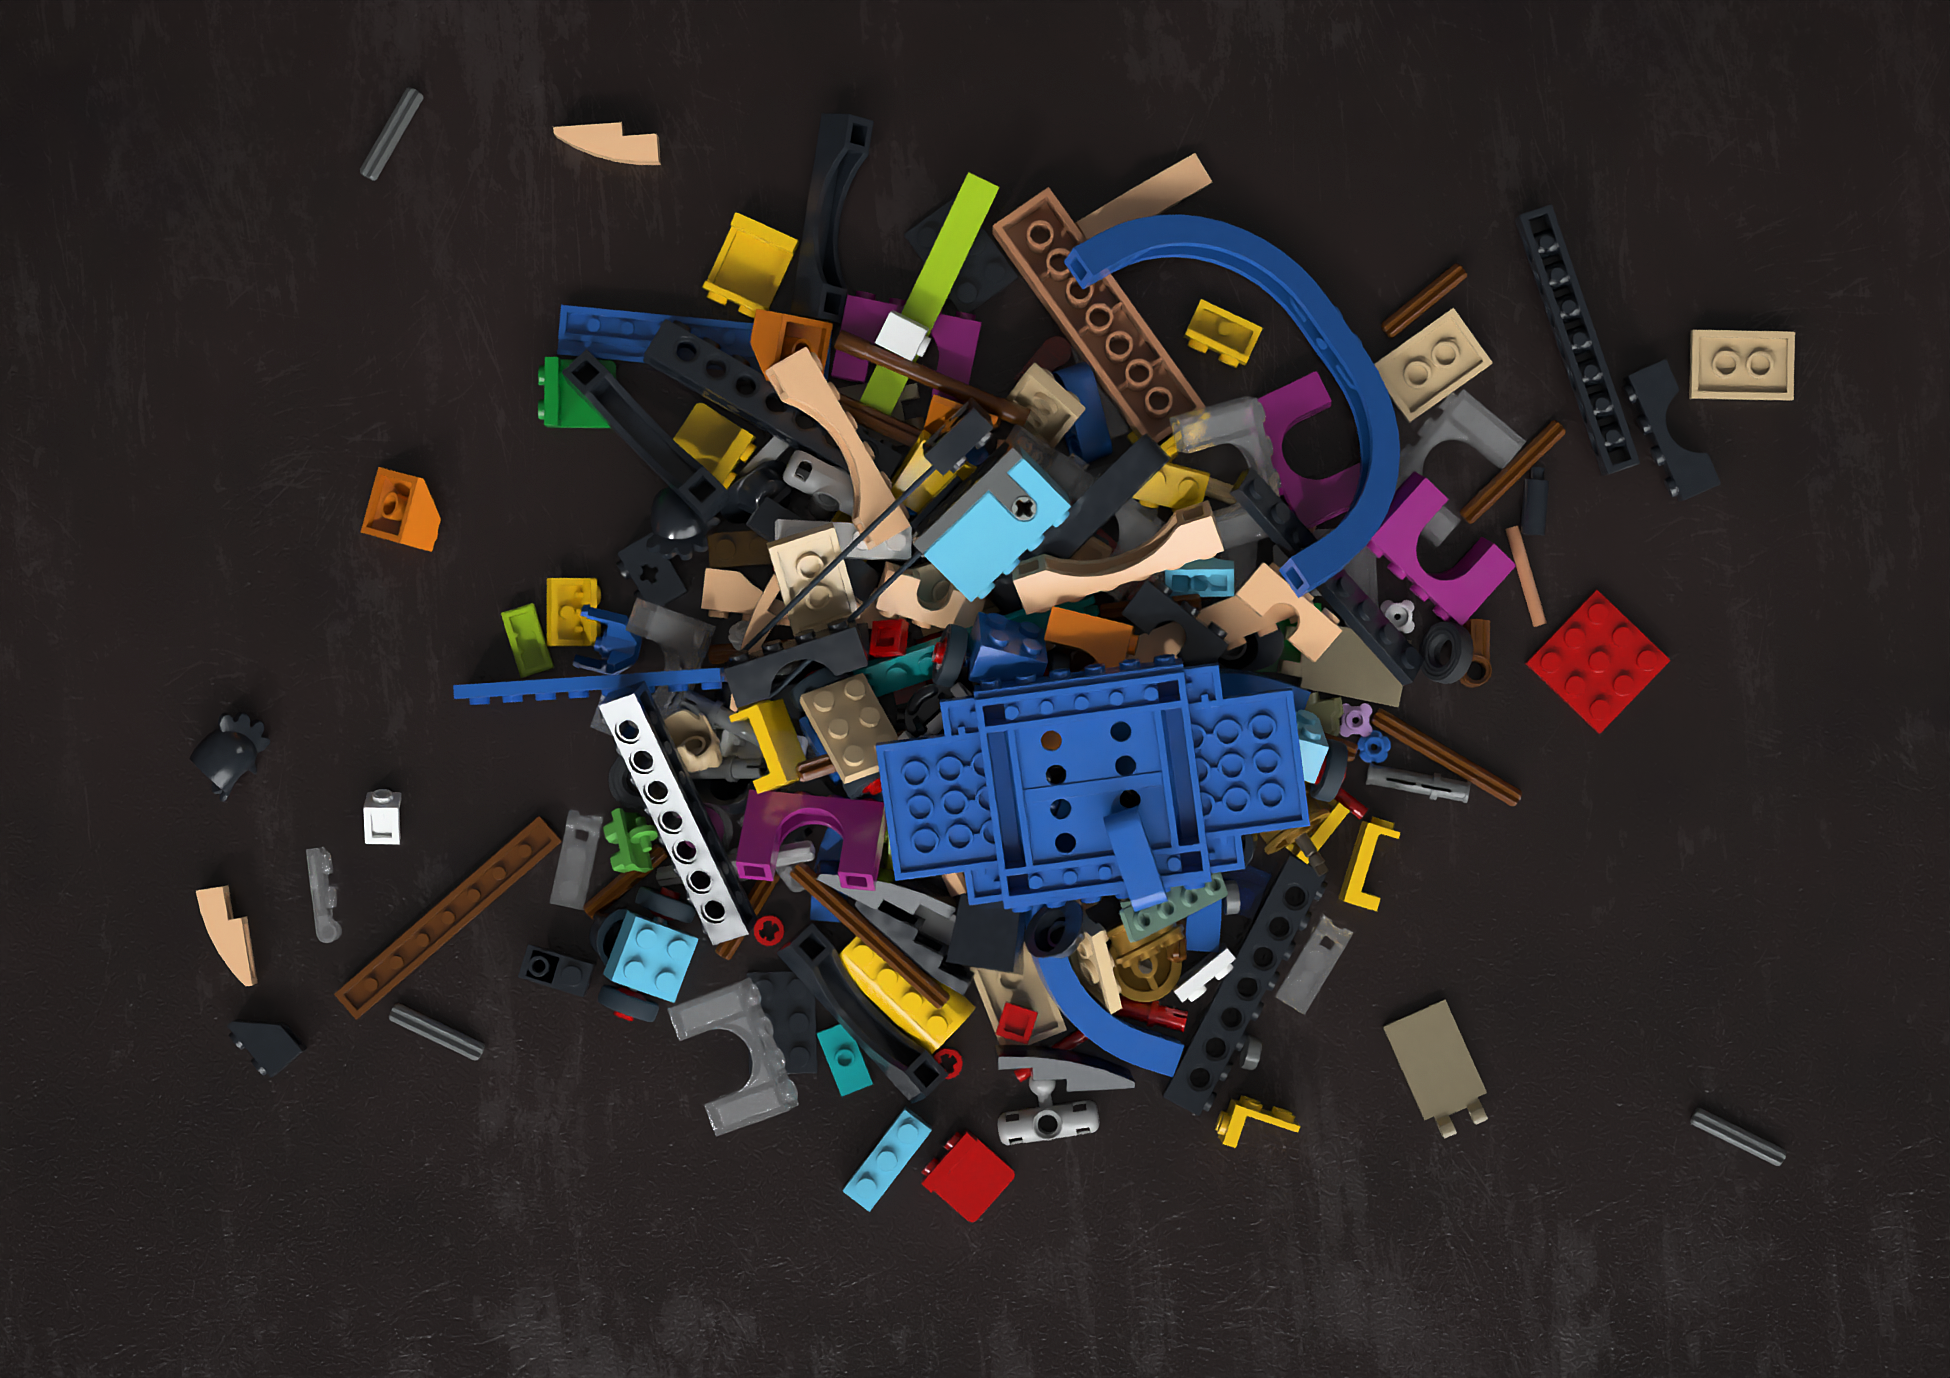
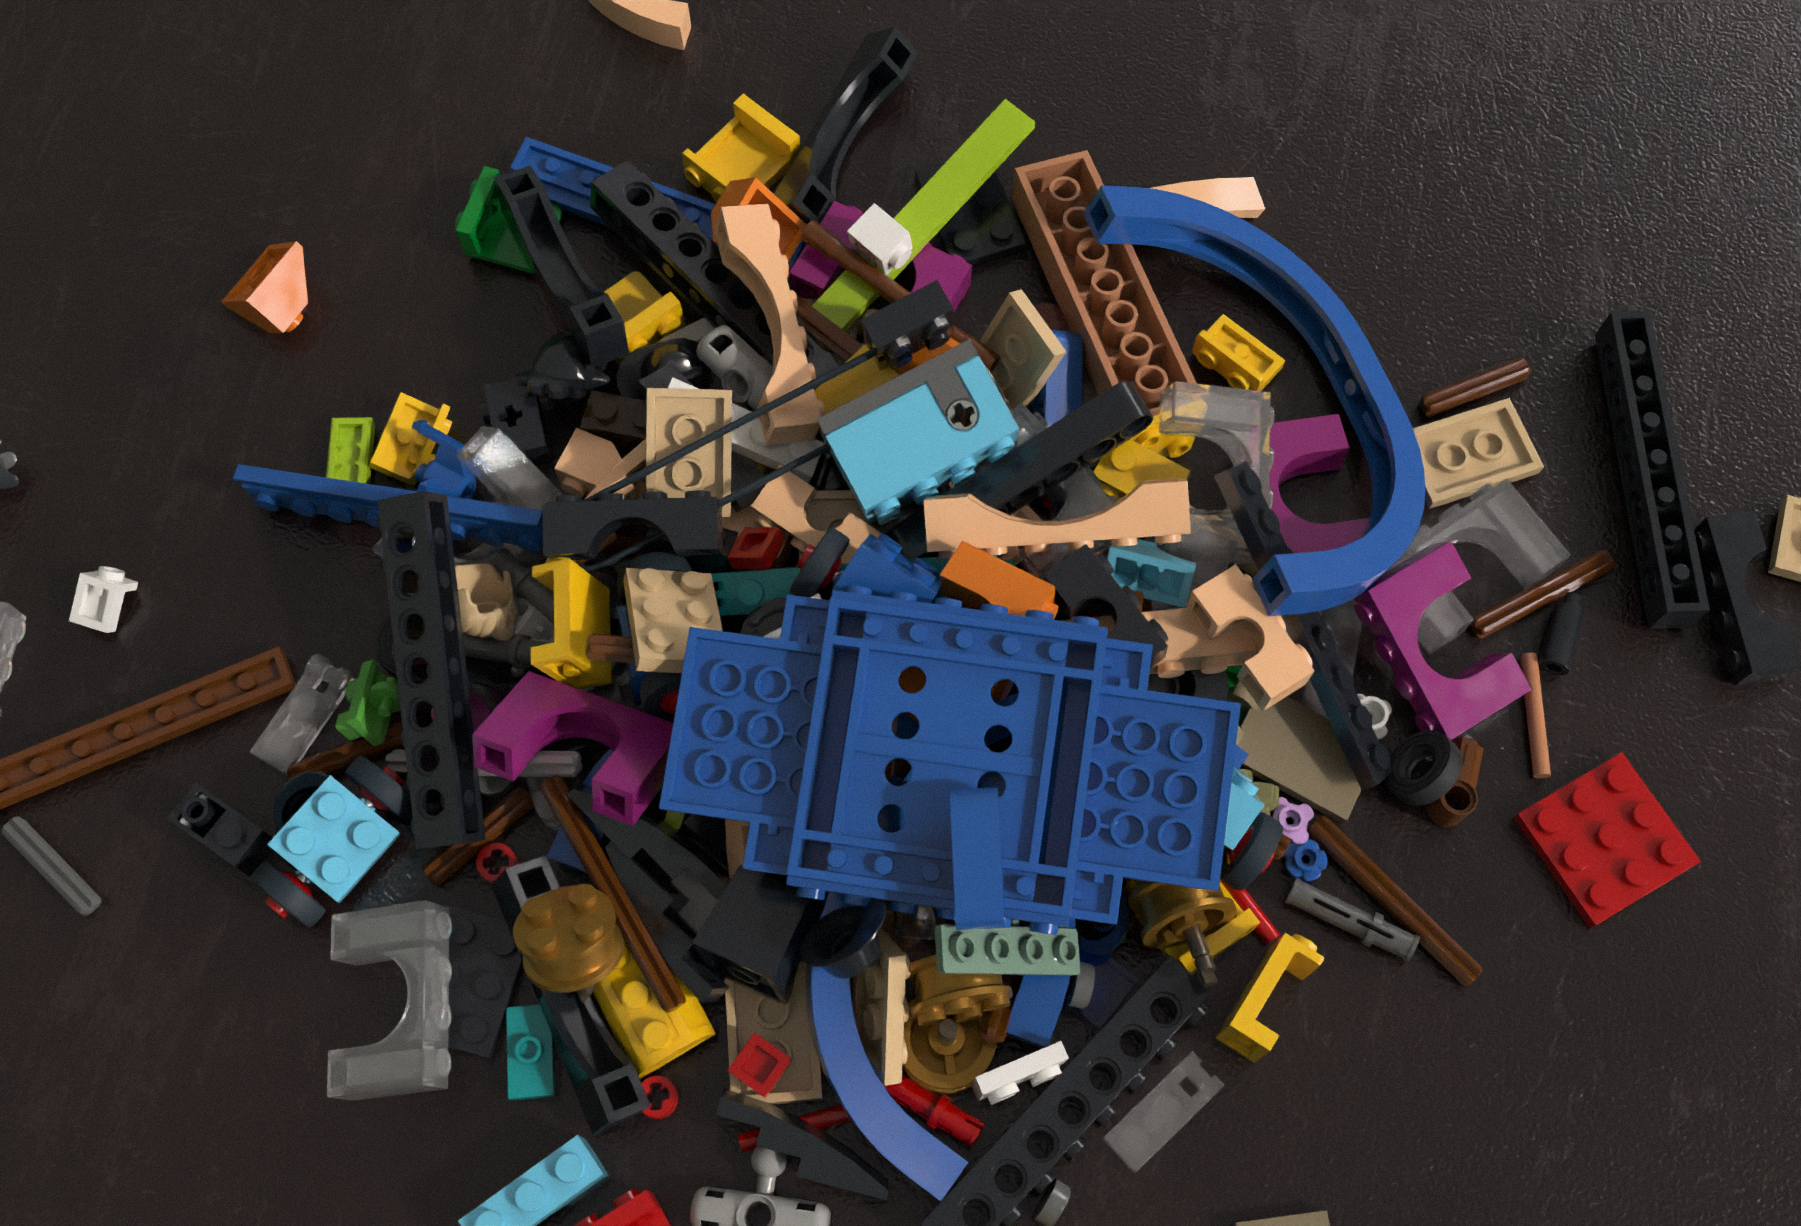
camera: 15 degrees right, 20 degrees down
(856, 983) = (569, 939): none -> pearl gold wheel

